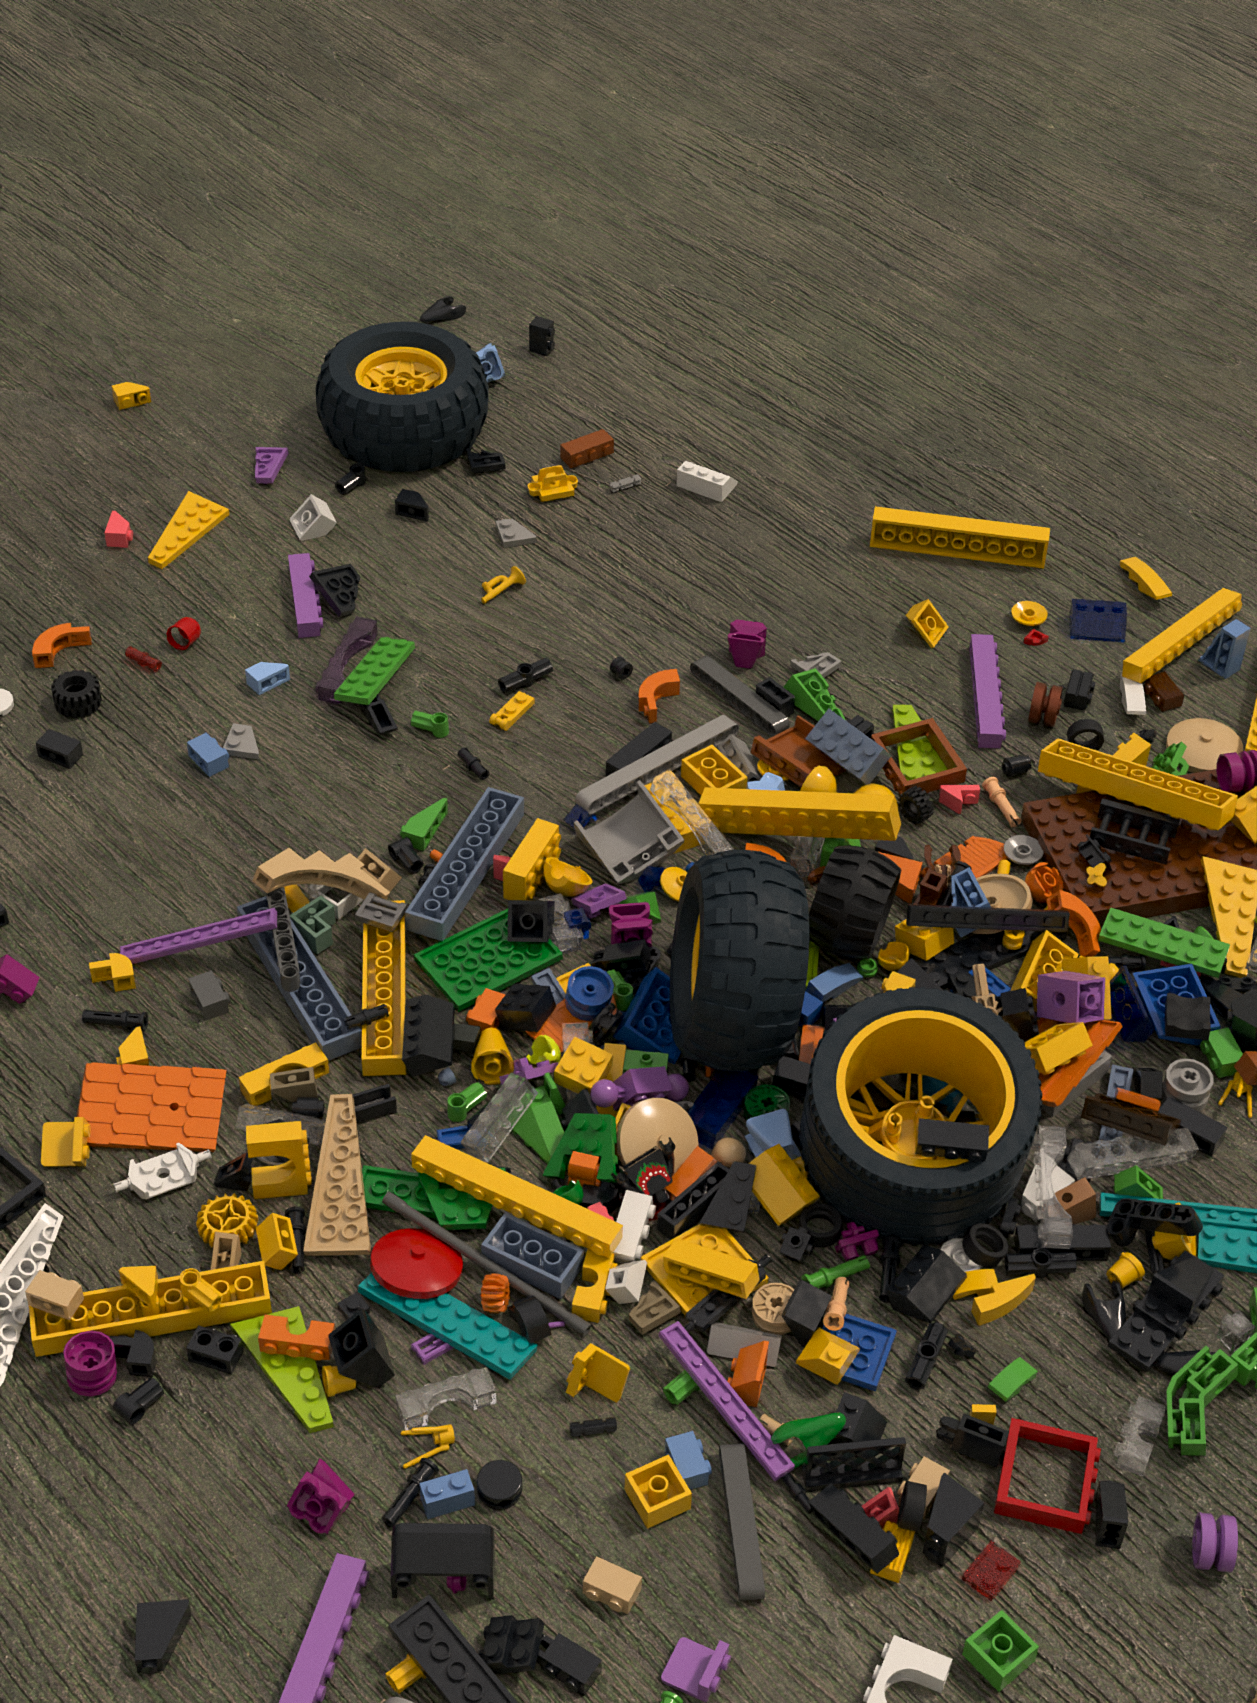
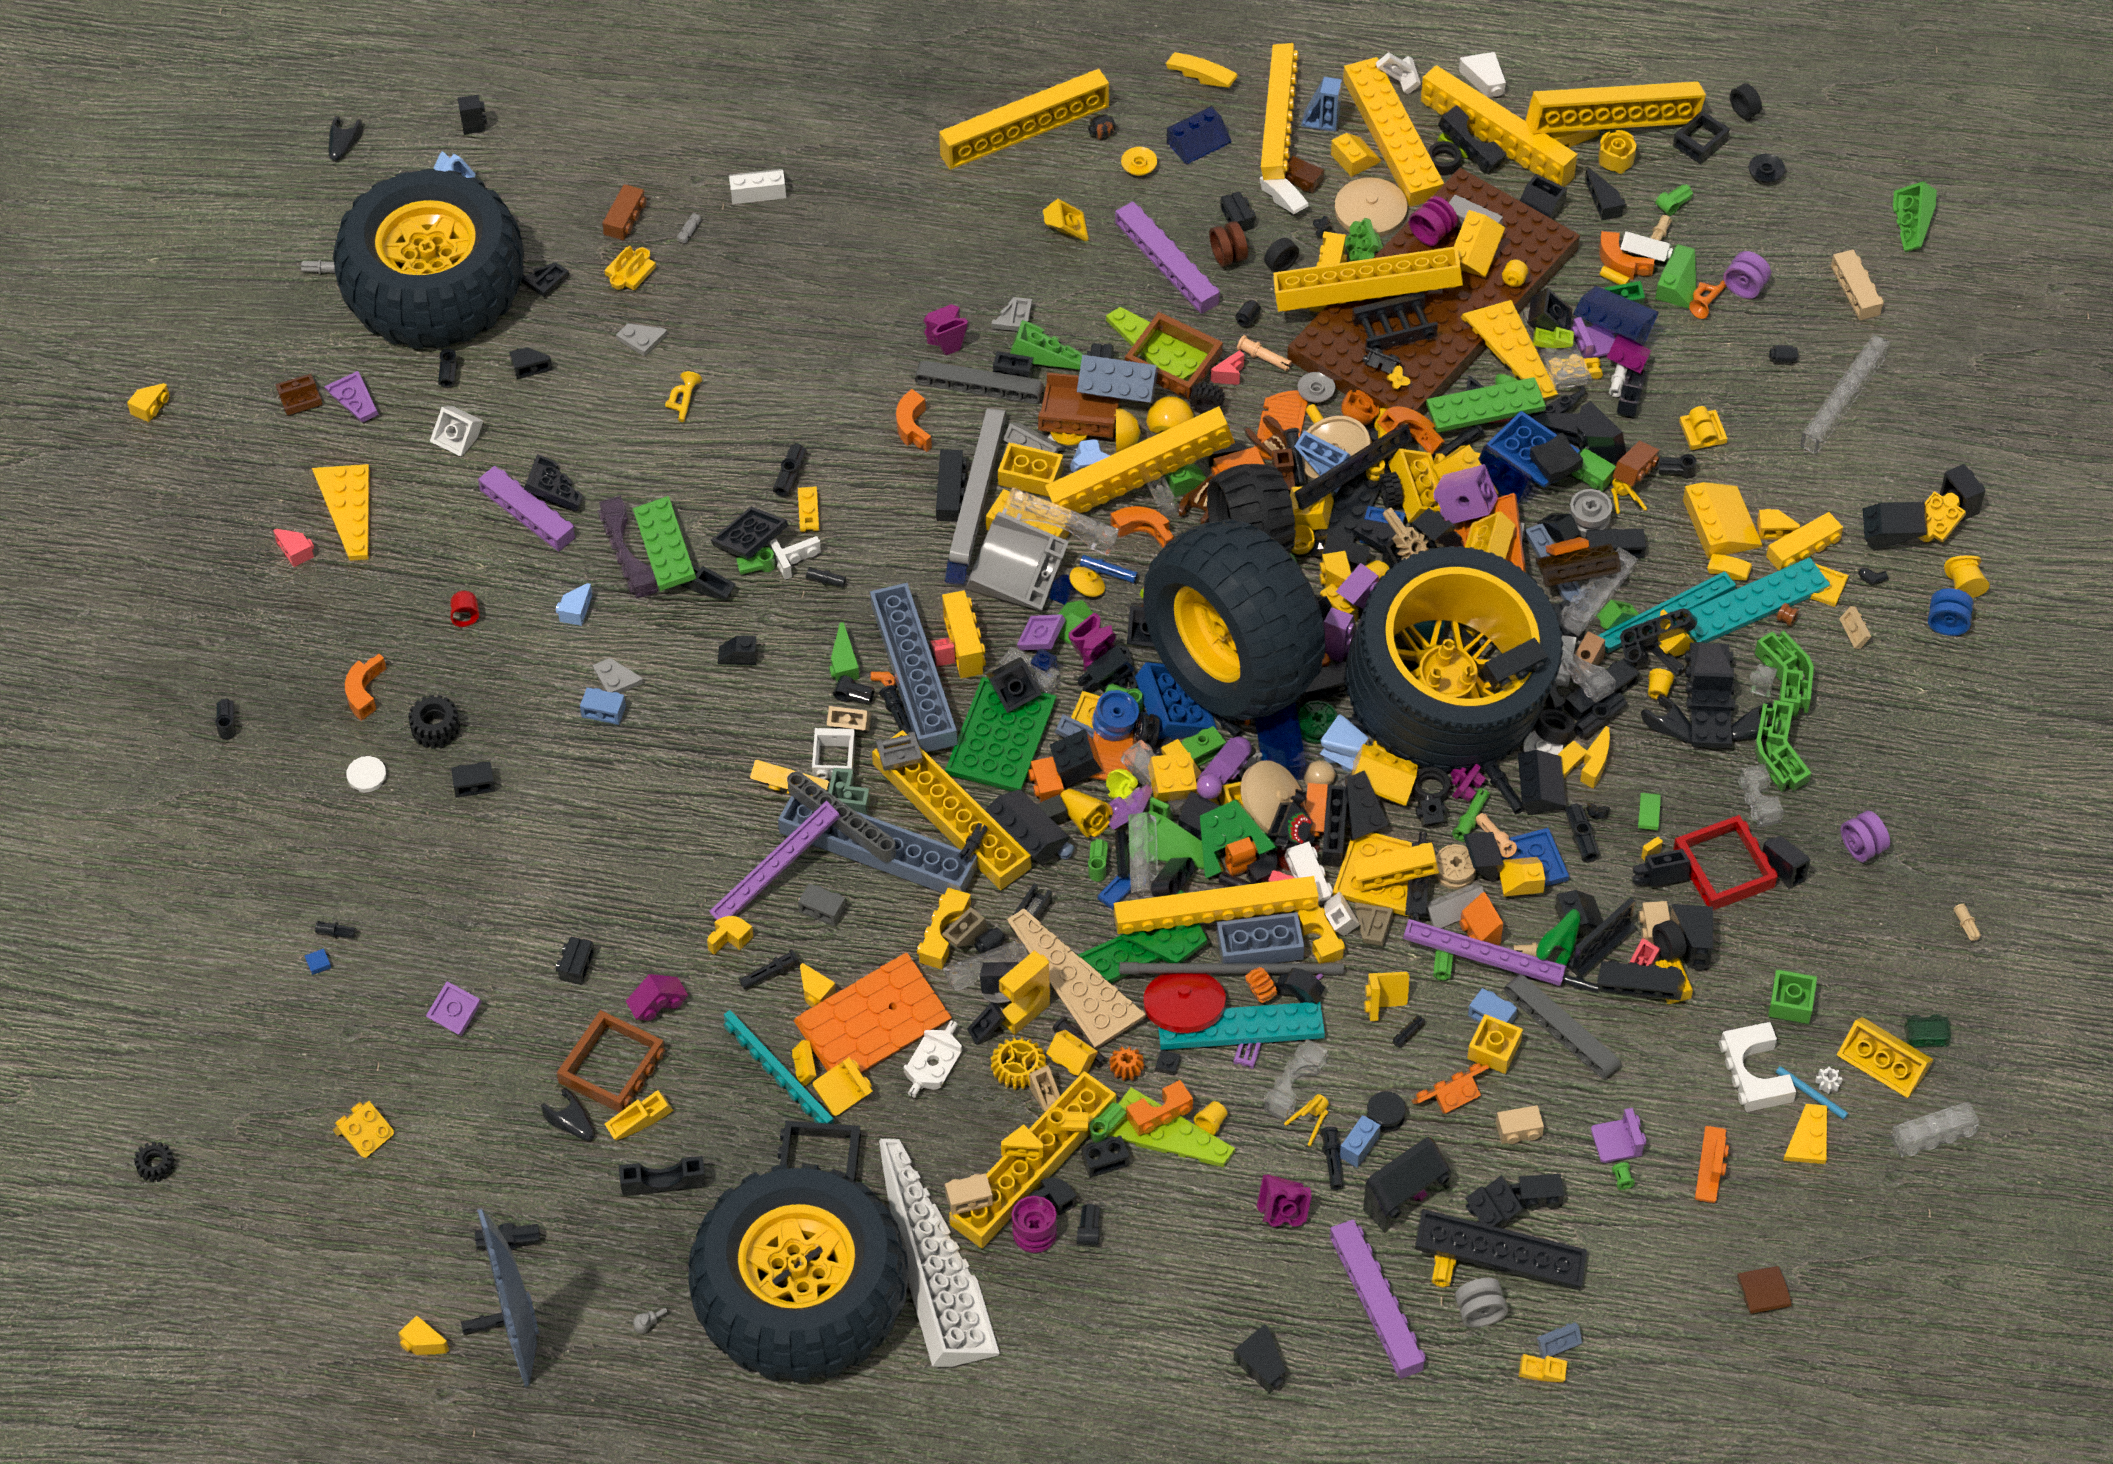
camera: 35 degrees left, 10 degrees up
(35, 1094) = (773, 1066): none -> teal plate
(65, 1098) = (804, 1062): none -> yellow plate
(143, 658) = (451, 653): clear red pin -> none
(234, 443) = (298, 394): none -> reddish brown slope
(240, 1319) = (1108, 1121): none -> bright green piece
(291, 869) = (821, 746): tan arch -> none
(315, 1283) = (1126, 1063): none -> orange gear
(351, 777) = (739, 651): none -> black slope
(361, 1351) = (1217, 1084): black slope -> none
(445, 698) = (749, 533): none -> black plate
(465, 733) = (793, 554): none -> white bracket
(518, 1156) = (1172, 876): none -> black beam
(565, 878) = (1002, 631): yellow cylinder -> none
(571, 1192) = (1247, 876): green hair -> none
(581, 1512) = (1454, 1092): none -> orange bracket
(621, 668) = (860, 414): black wheel -> none
(991, 1571) = (1741, 950): clear red plate -> none
(1012, 961) = (1390, 489): none -> black tyre
(1021, 576) = (1101, 126): none -> black head
(1035, 638) = (1161, 181): red tile -> none
(1224, 699) = (1353, 154): none -> yellow slope

